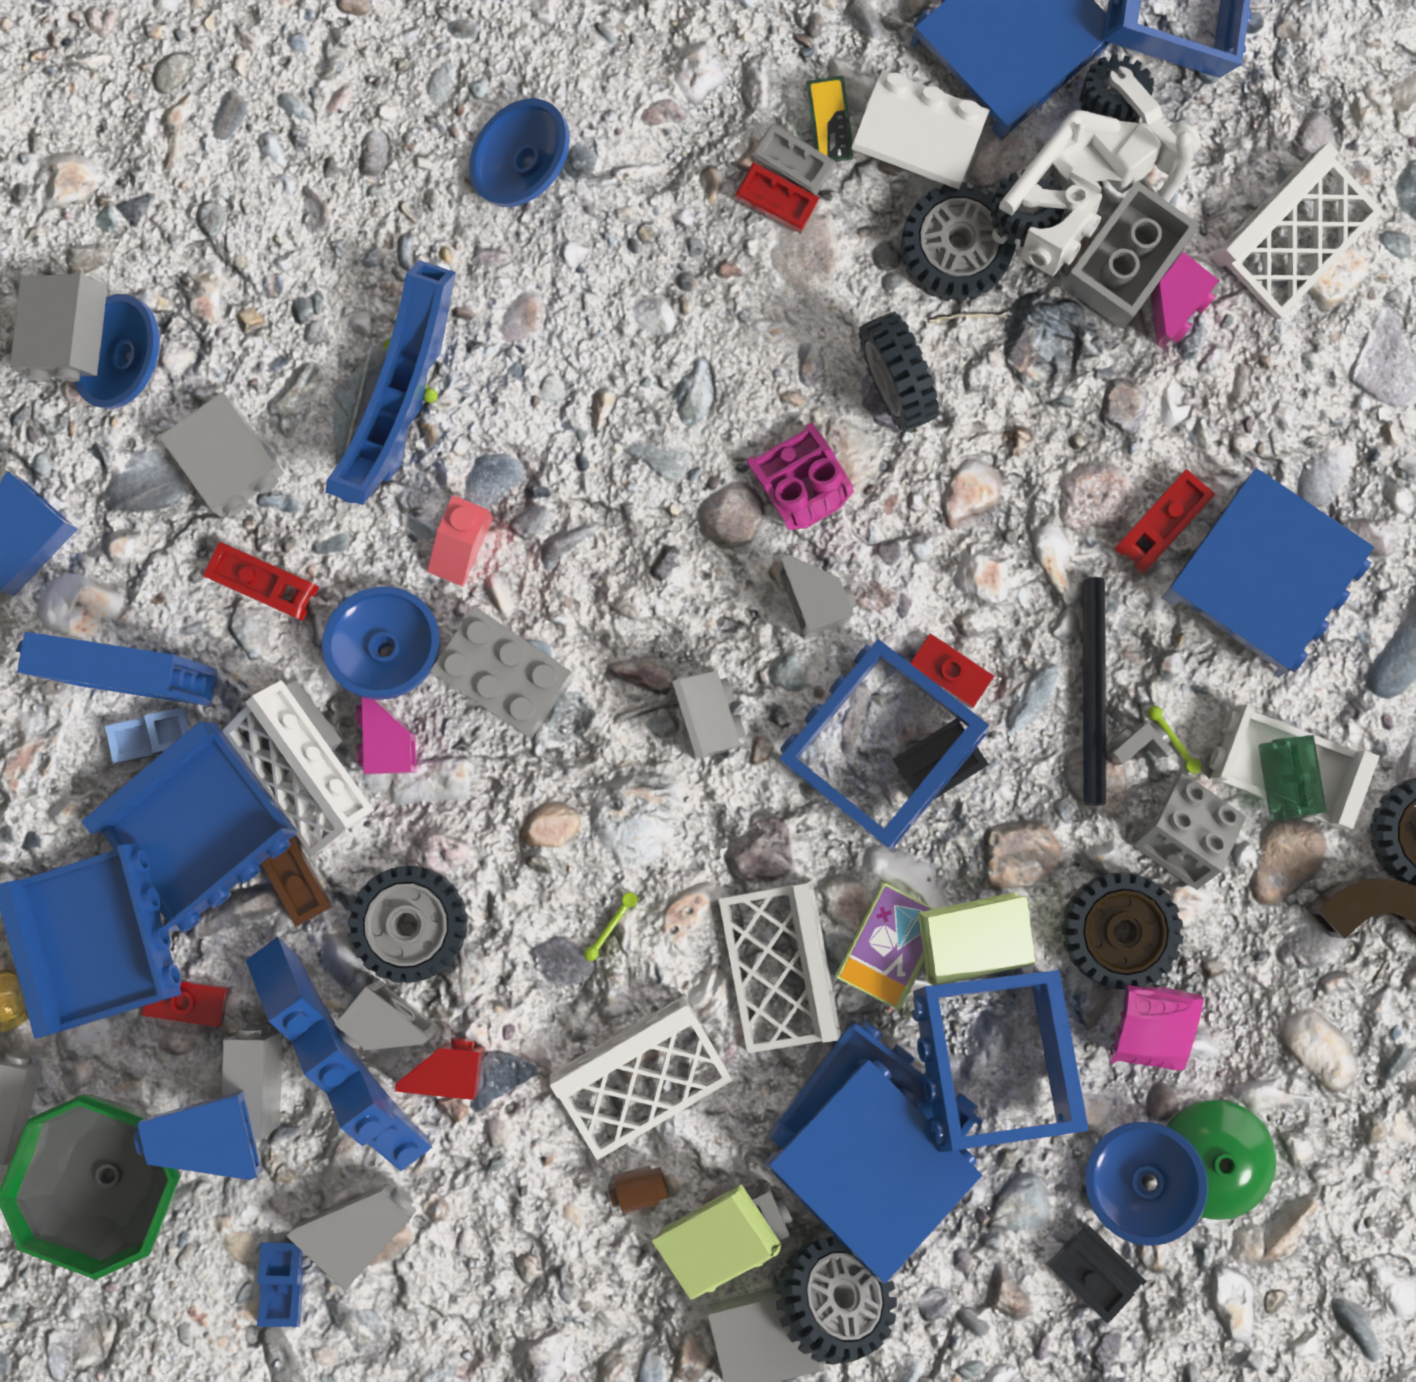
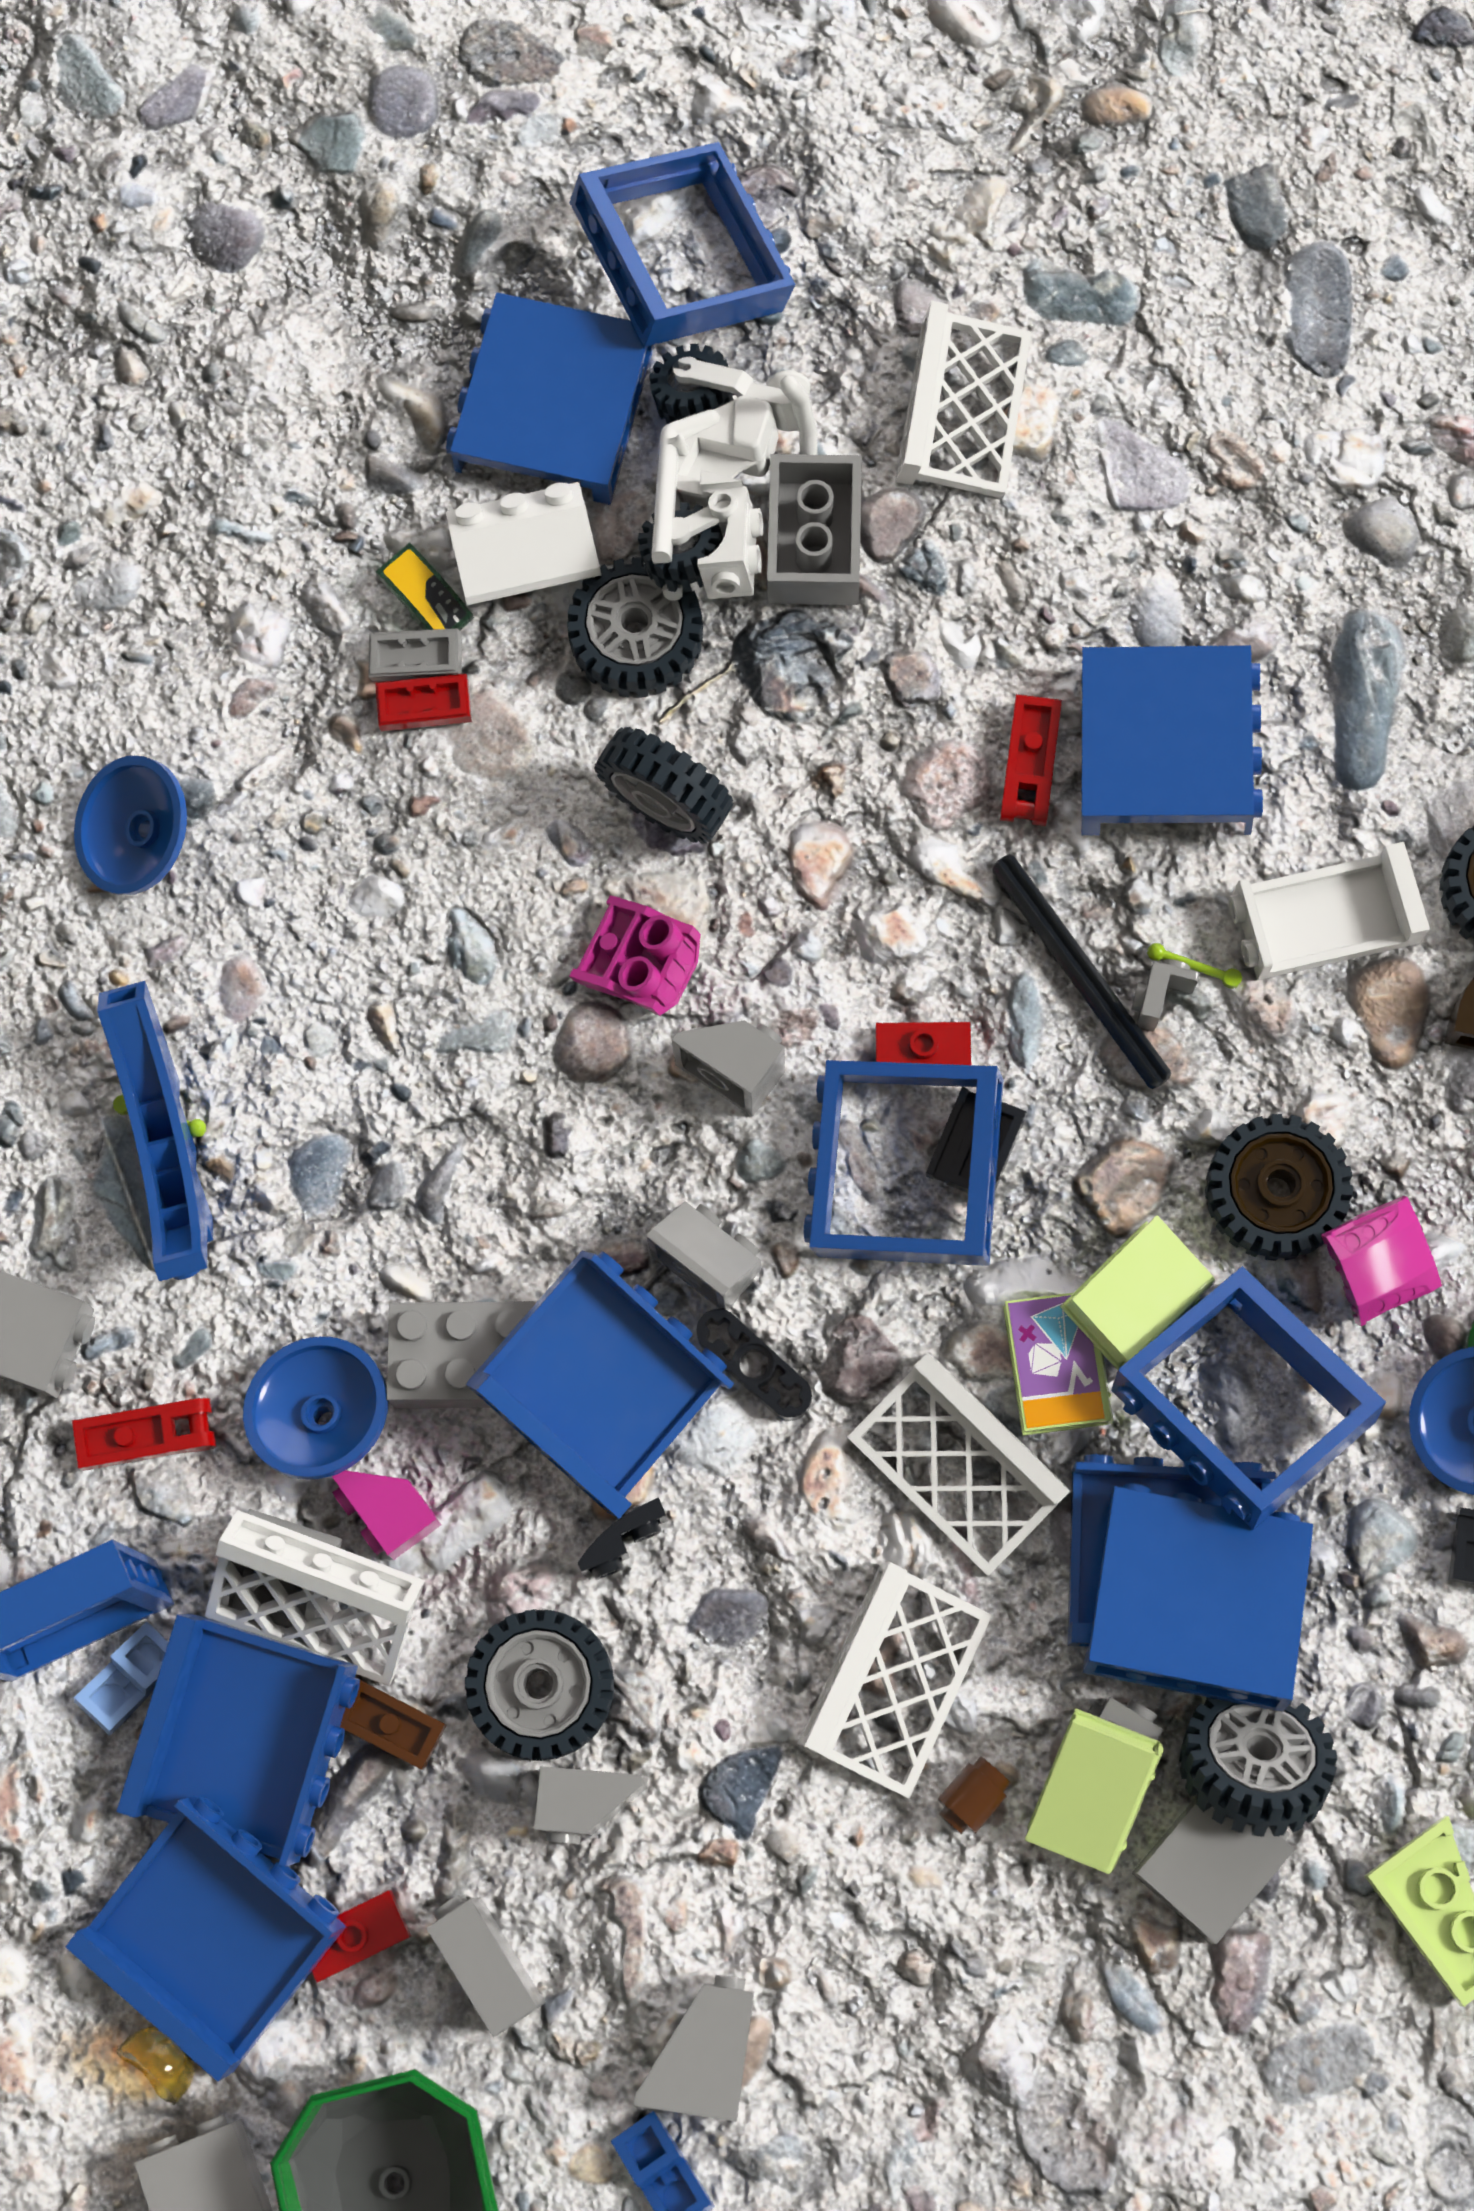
camera: 25 degrees left, 10 degrees down
(202, 1138) = (472, 2041): blue slope -> none
(328, 1061) = (558, 1875): blue arch -> none
(447, 1072) = (685, 1812): red slope -> none
(459, 540) = (326, 1252): coral slope -> none
(514, 867) = (608, 1550): none -> black slope
(576, 752) = (598, 1379): none -> blue panel
(591, 953) = (755, 1503): lime hinge -> none
(674, 782) = (788, 1380): none -> black beam
(1176, 297) = (889, 538): dark pink slope -> none
(1192, 833) = (1277, 1044): light grey bracket -> none
(1292, 778) = (1336, 921): clear green hinge -> none

